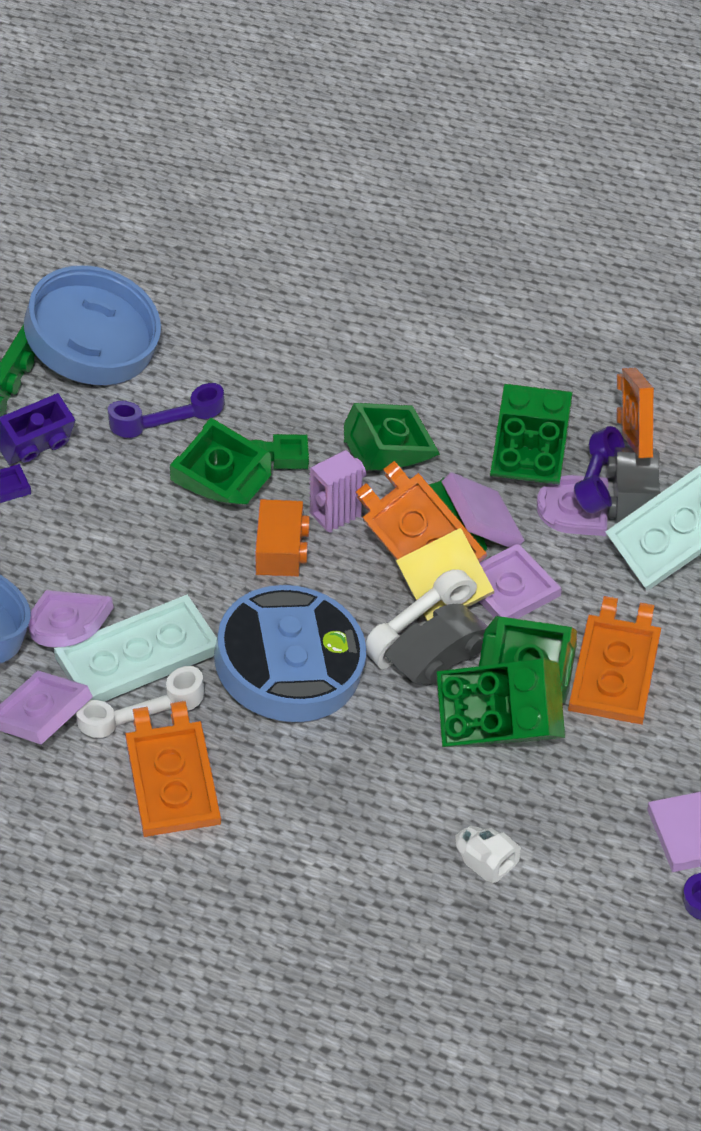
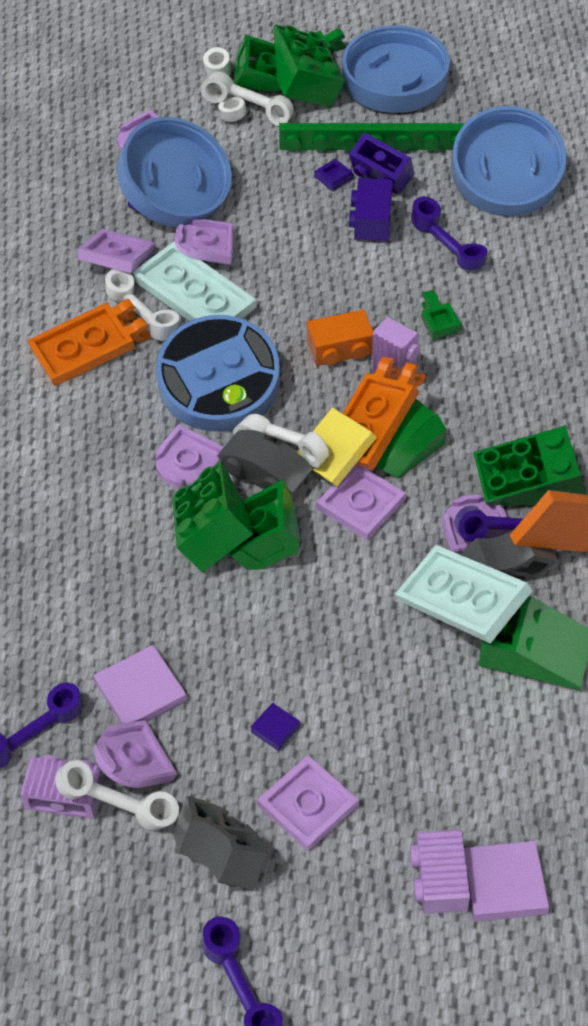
camera: 75 degrees right, 5 degrees up
(100, 457) = (372, 209): none -> dark purple brick
(222, 465) = (395, 278): green slope -> none
(387, 434) = (486, 378): green slope -> none
(391, 717) = (185, 456): none -> lavender tile
(482, 510) = (421, 454): lavender tile -> none
(487, 852) = (68, 548): white rock -> none
(616, 664) = (301, 592): orange tile -> none

